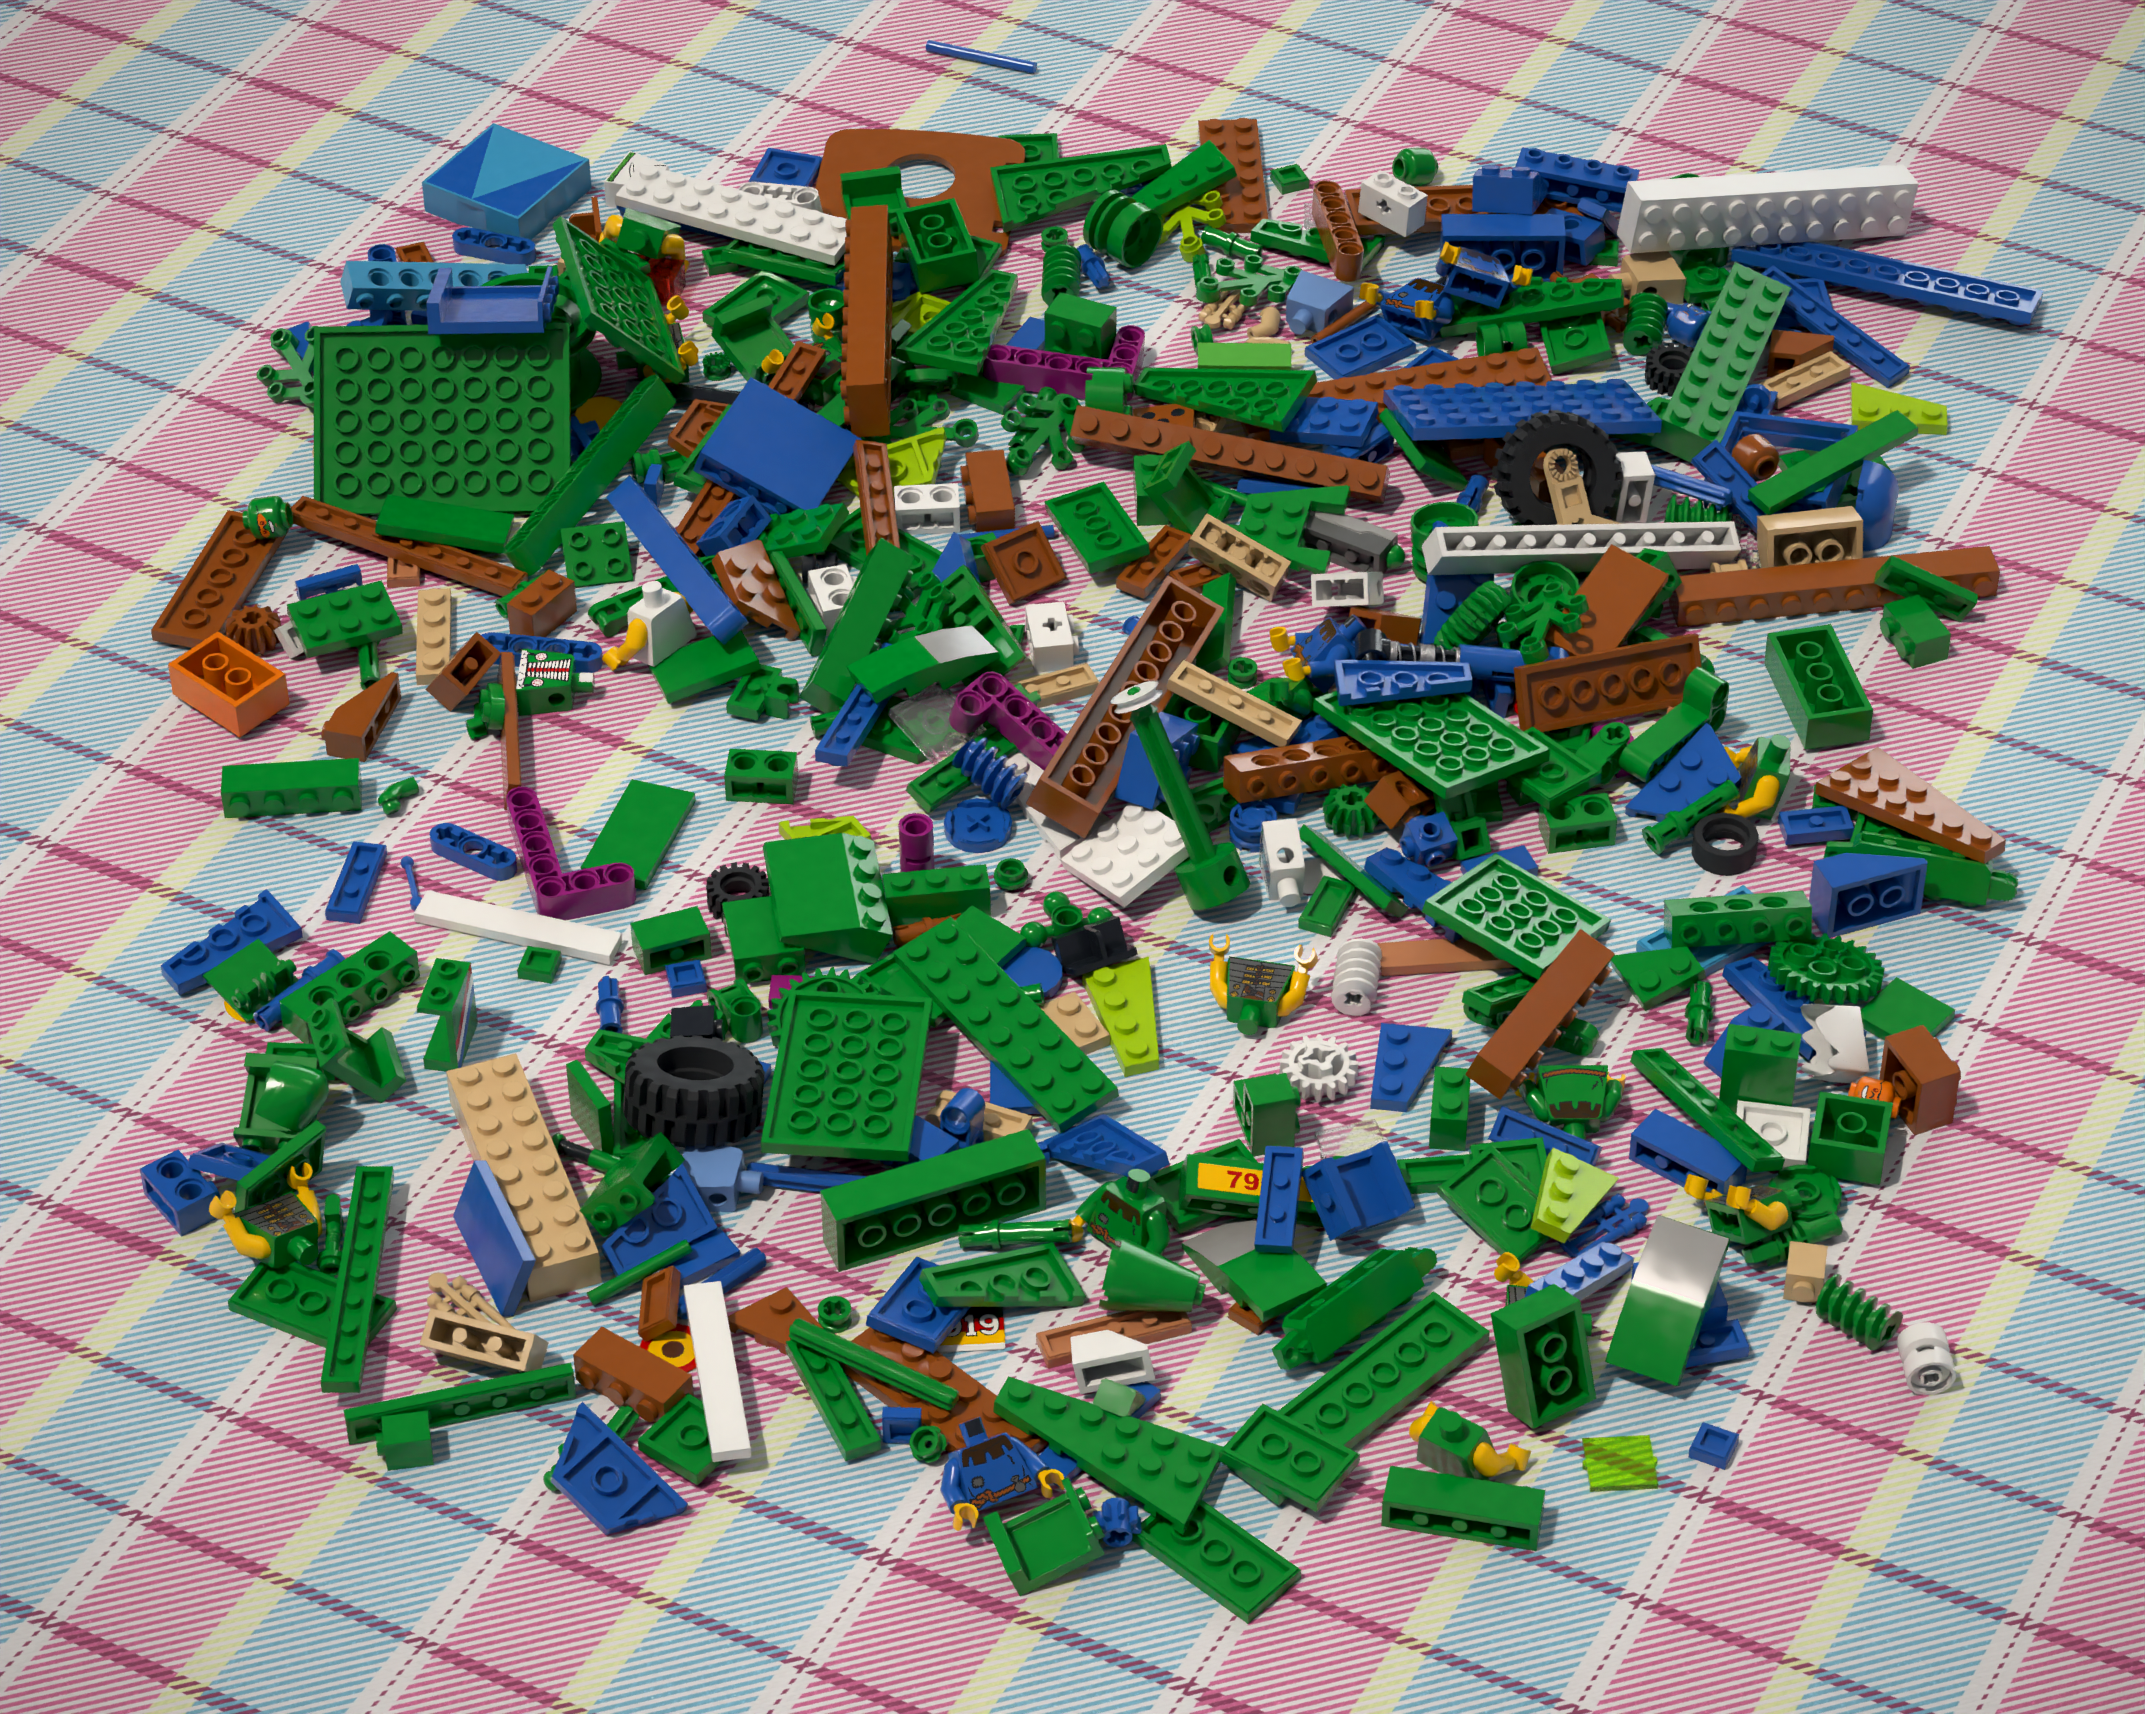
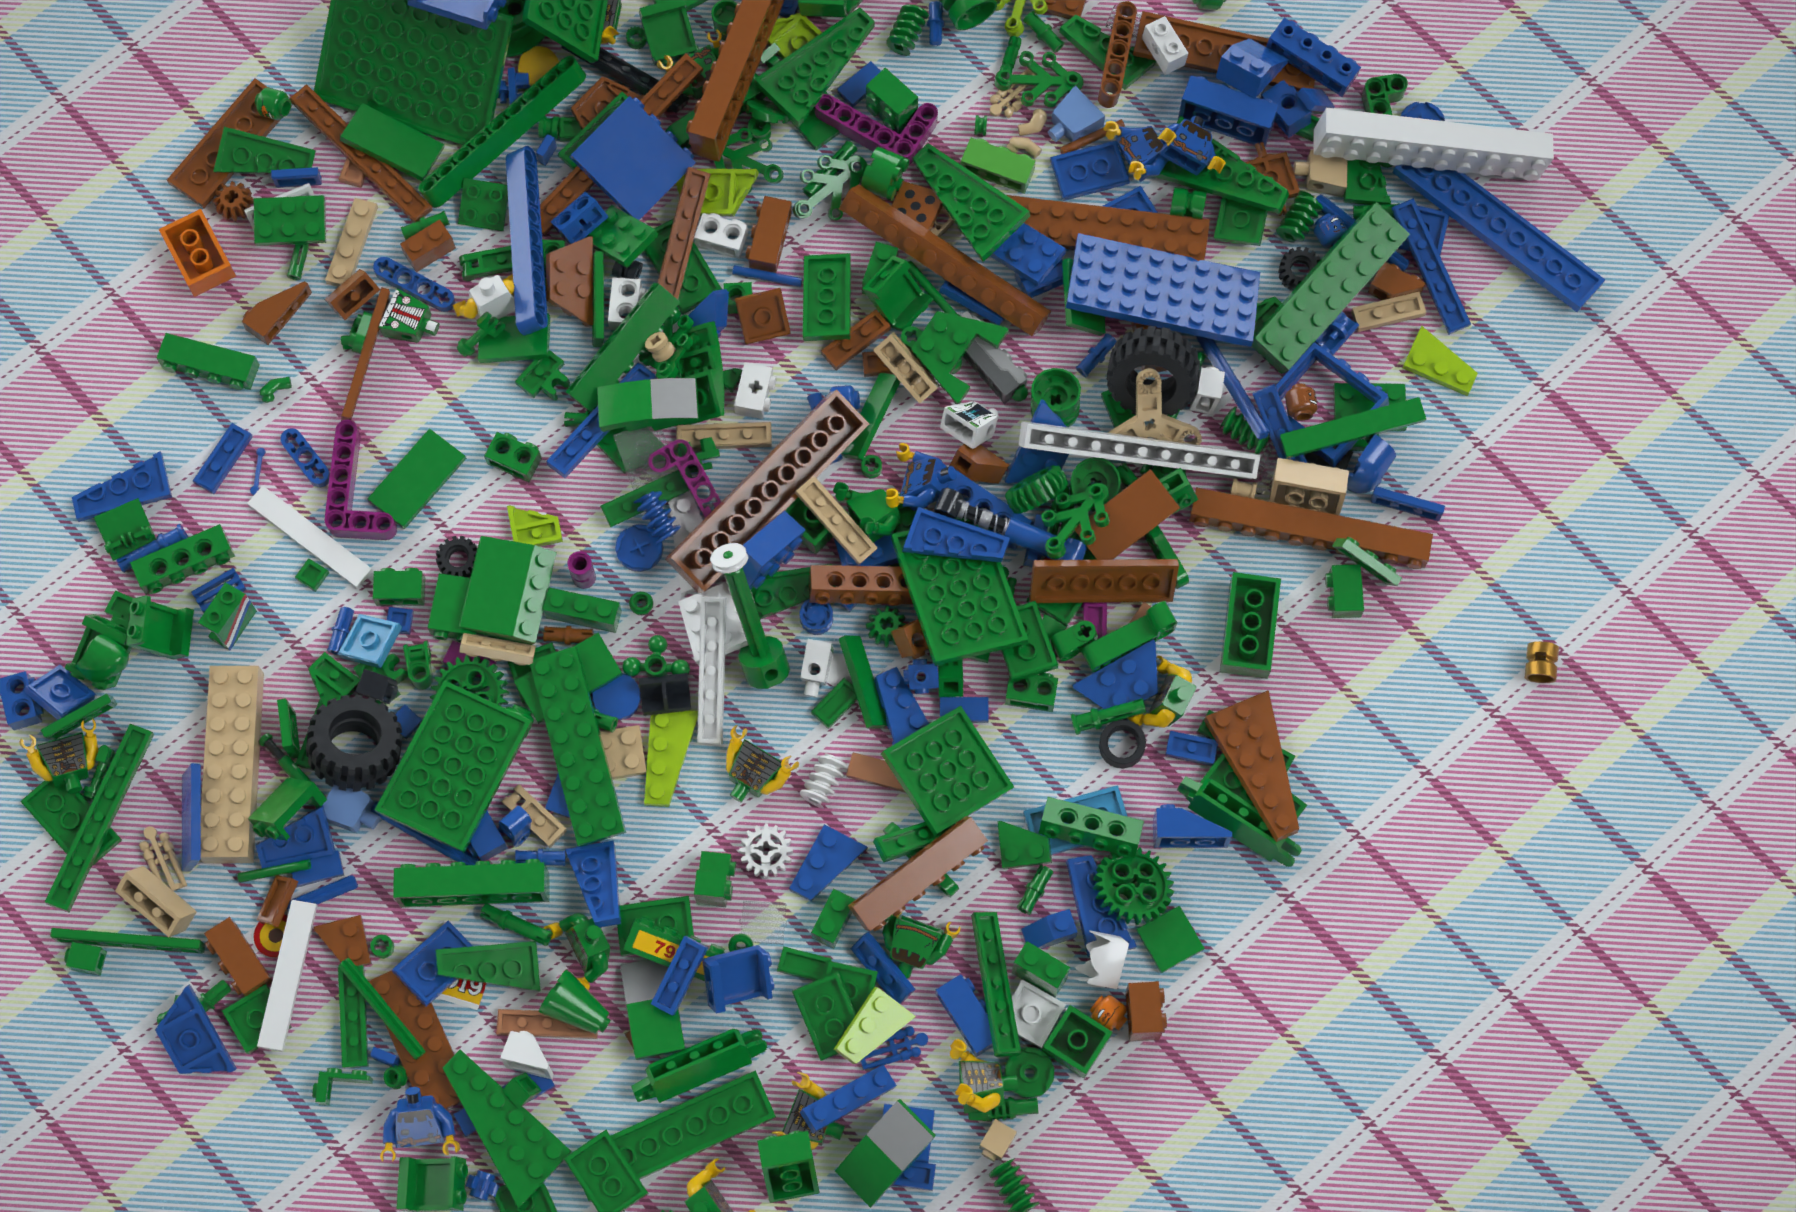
camera: 20 degrees right, 30 degrees up
(264, 573) = (258, 154): none -> green wing
(403, 1013) = (212, 584): none -> blue tile
(650, 999) = (370, 640): none -> dark azure tile
(665, 654) = (487, 326): none -> green hinge
(843, 955) = (497, 649): none -> tan plate
(848, 1466) = (323, 1088): none -> green bracket
(908, 608) = (659, 346): none -> tan wheel
(1148, 897) = (711, 670): none -> white tile
(1937, 535) = (1407, 503): none -> blue tile

